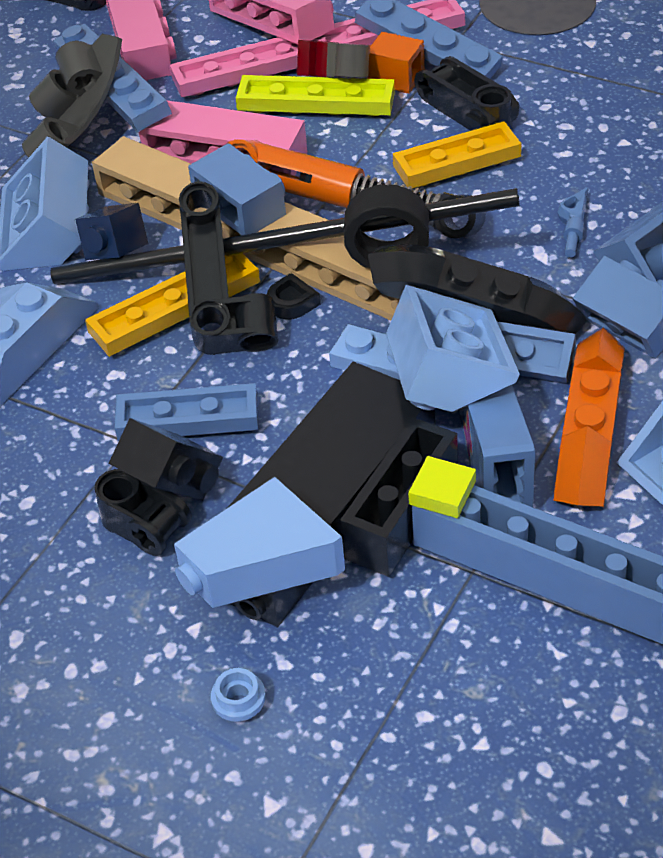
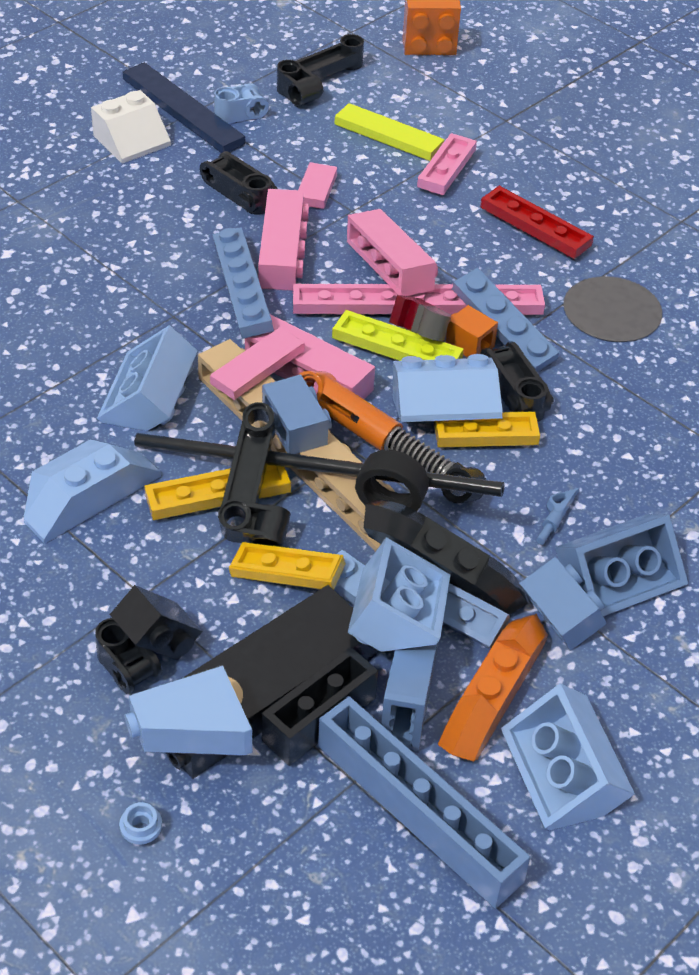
camera: 10 degrees right, 0 degrees up
(74, 92) = (205, 290): dark grey panel -> none
(111, 231) = (191, 418): dark blue brick -> none
(166, 151) = (257, 363): none -> bright pink tile
(191, 410) = (193, 585): medium blue plate -> none
(293, 297) = (309, 513): black tile -> none
(293, 357) = (287, 566): none -> yellow tile
(395, 121) = (446, 388): none -> light blue slope
(442, 487) = (346, 711): neon yellow tile -> none

